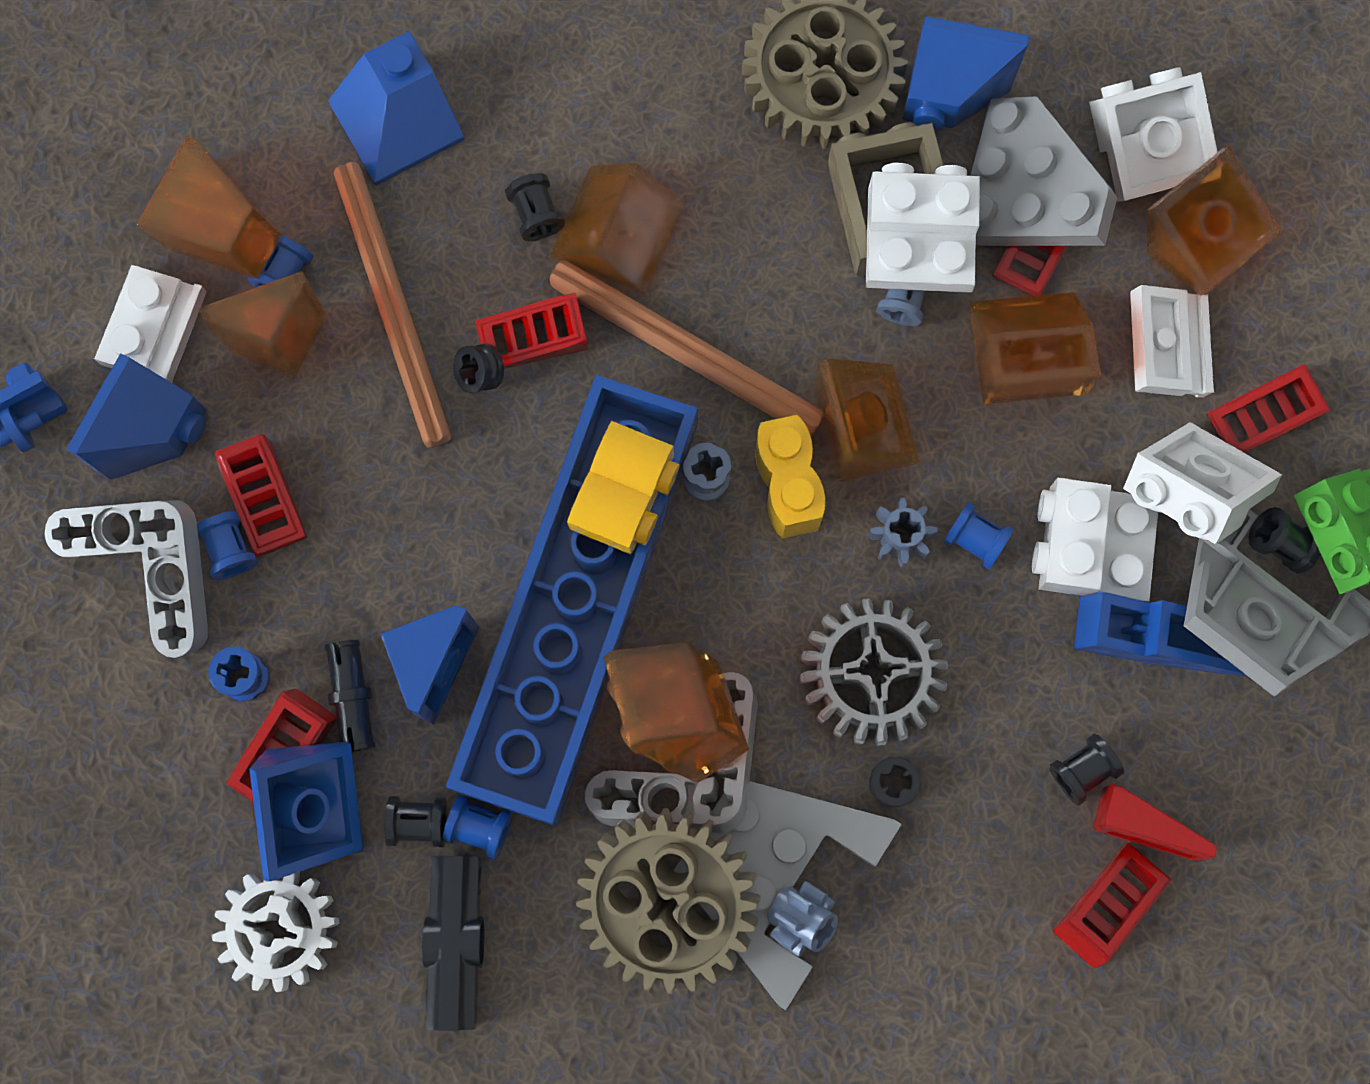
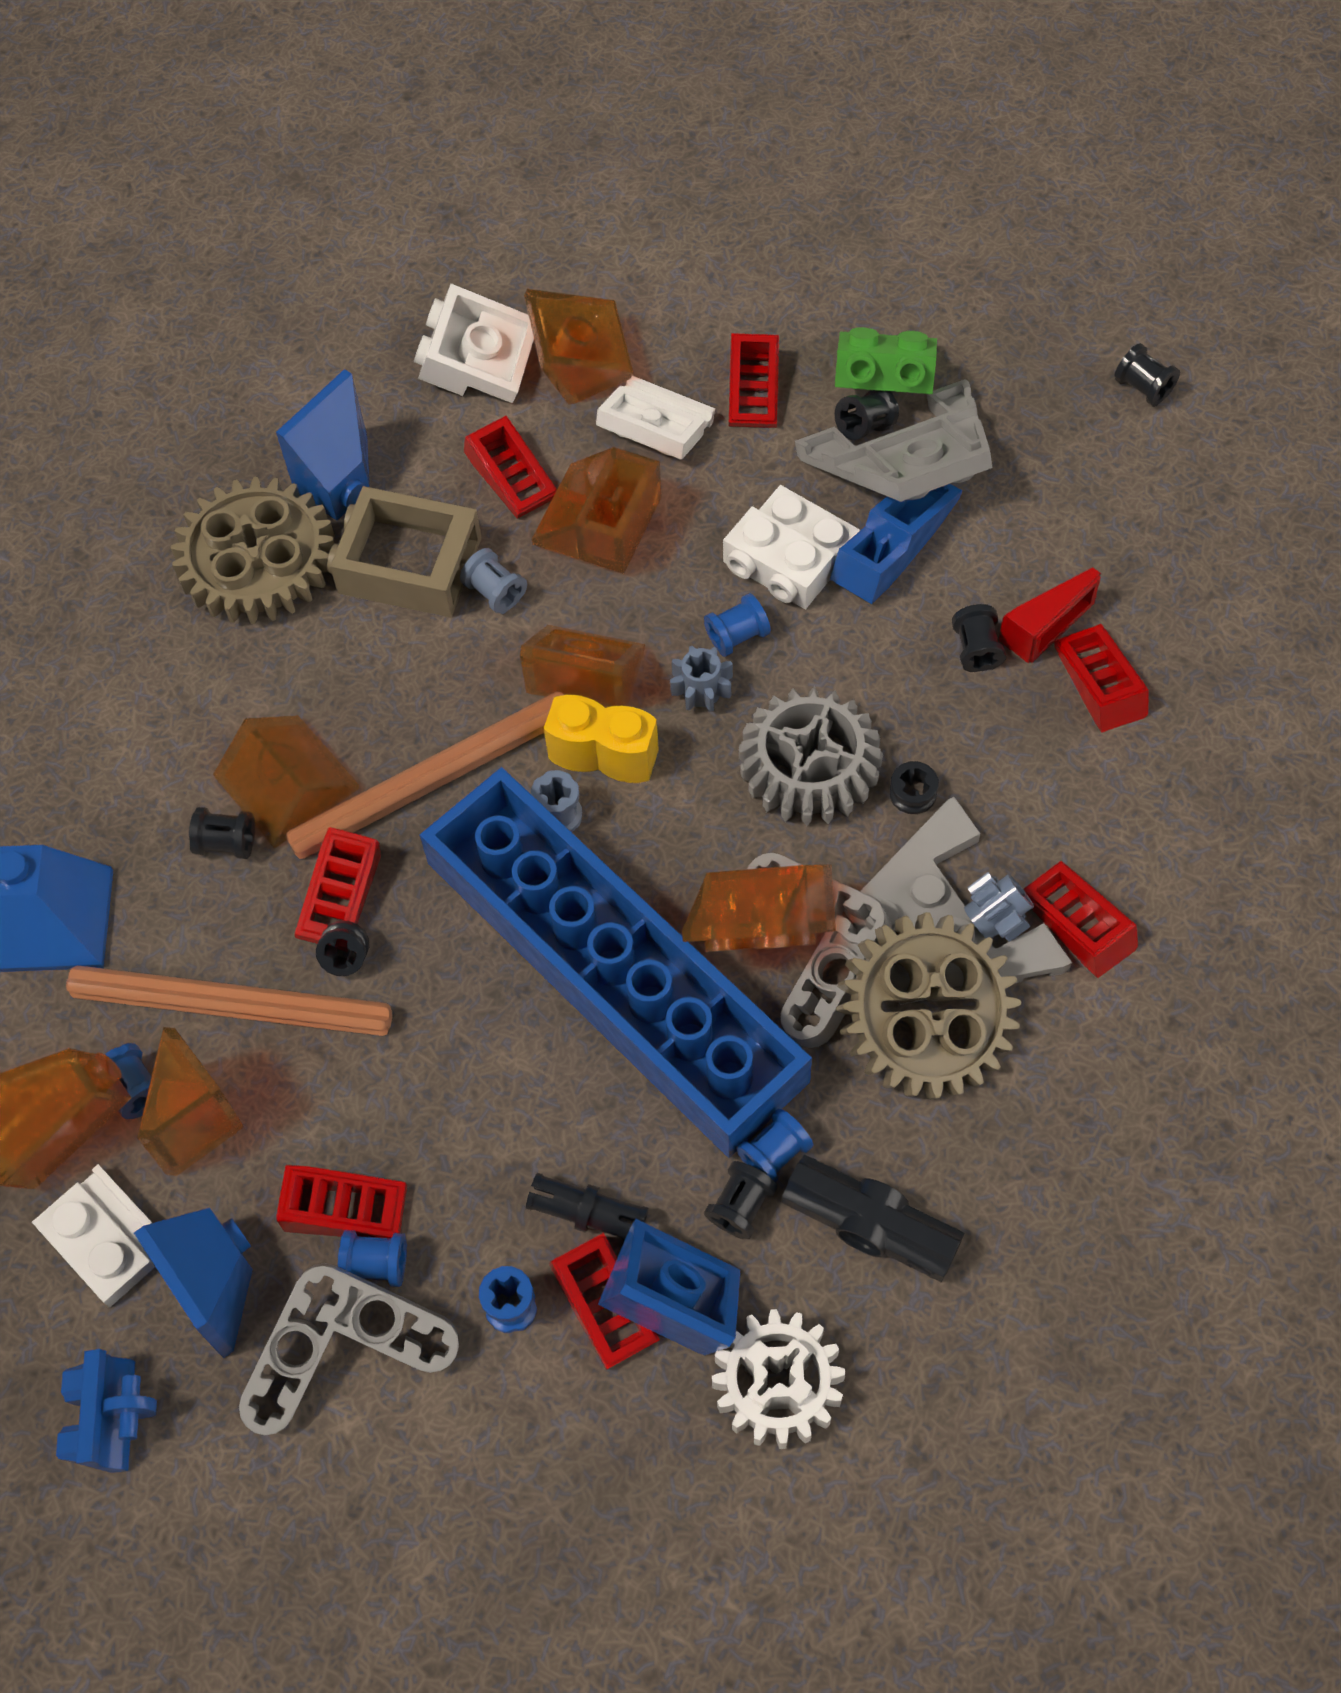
camera: 60 degrees left, 15 degrees down
(429, 656) = (597, 1108): blue slope -> none
(623, 487) = (542, 849): yellow brick -> none
(816, 1040) = (1101, 945): none -> red slope
(922, 229) = (452, 528): white plate -> none
(1037, 181) = (462, 439): light grey plate -> none
(1200, 482) = (788, 443): white plate -> none

